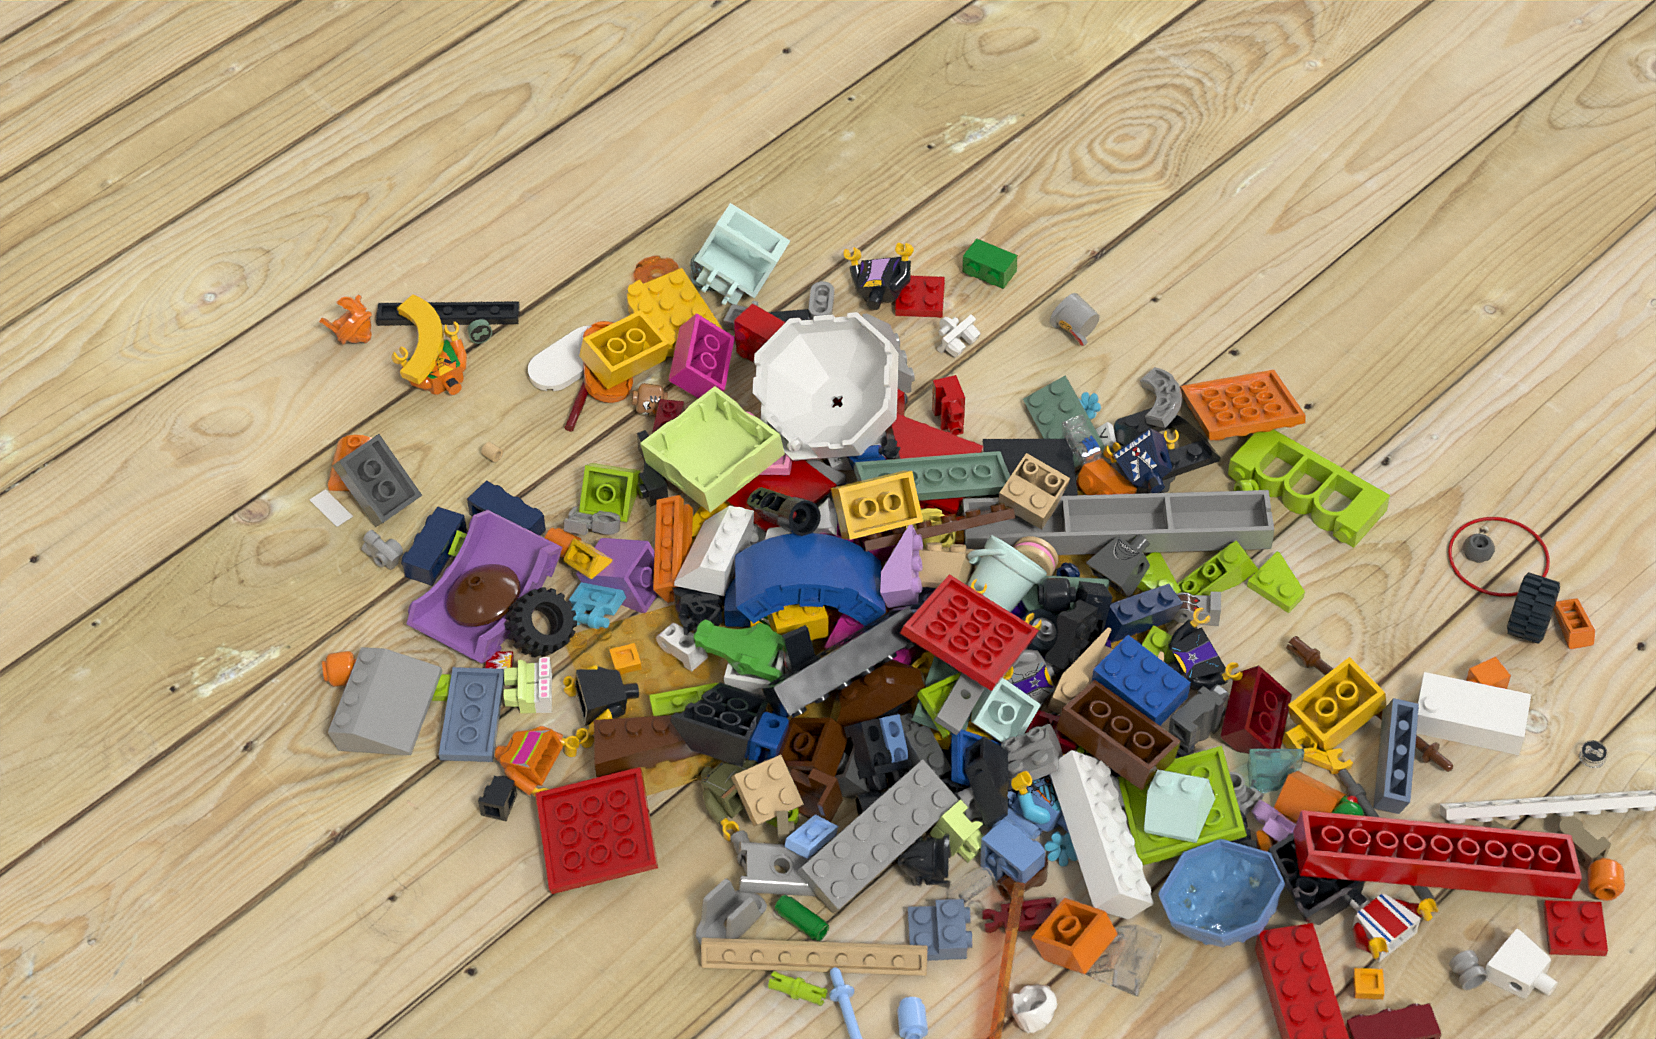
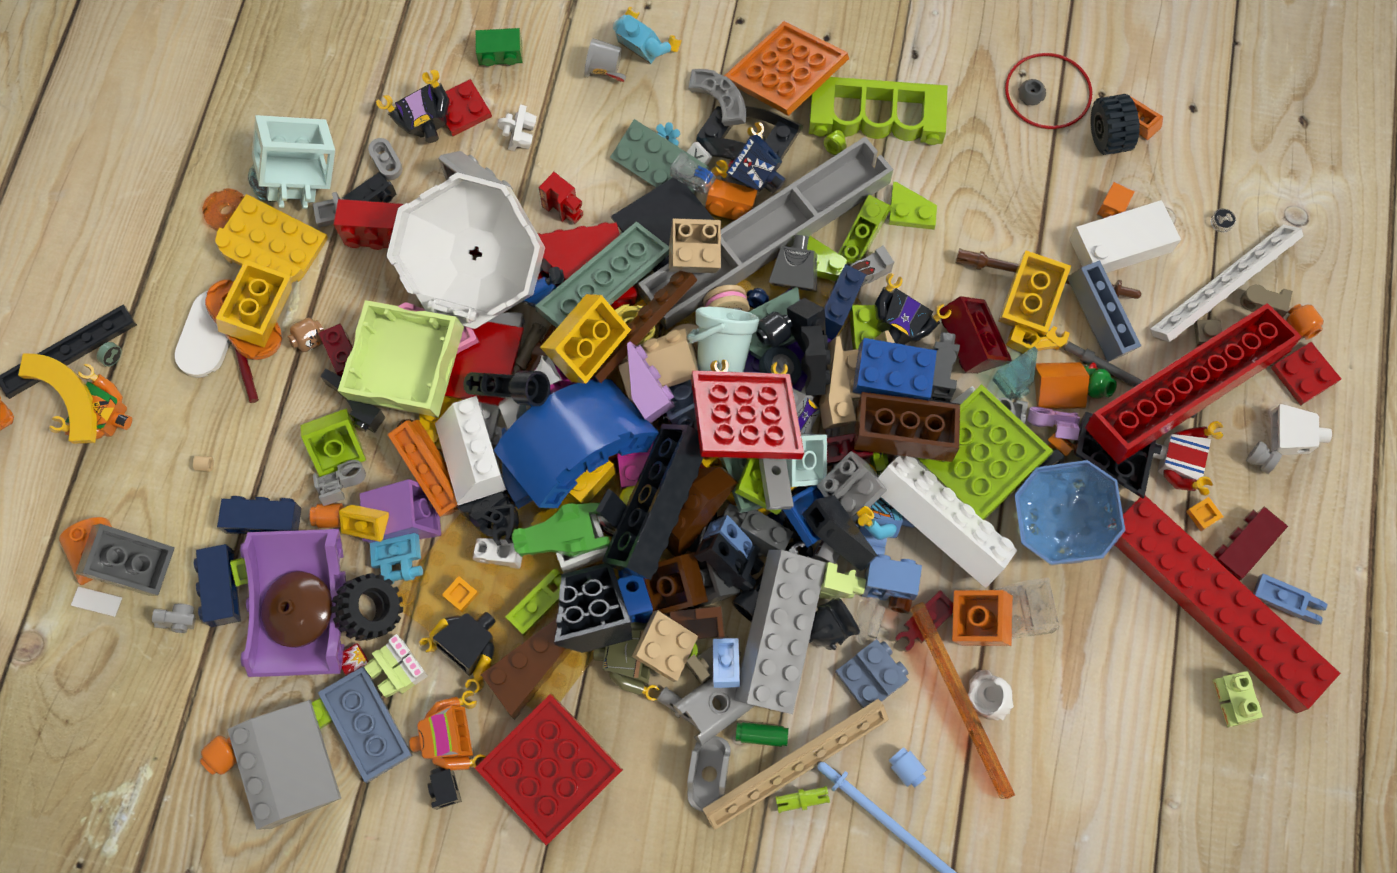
camera: 35 degrees left, 20 degrees up
(701, 356) = (326, 273): dark pink brick -> none
(1061, 848) = (914, 542): medium azure plant -> none
(1123, 319) = (641, 38): none -> medium azure torso
(1177, 805) = (988, 460): light aqua slope -> none

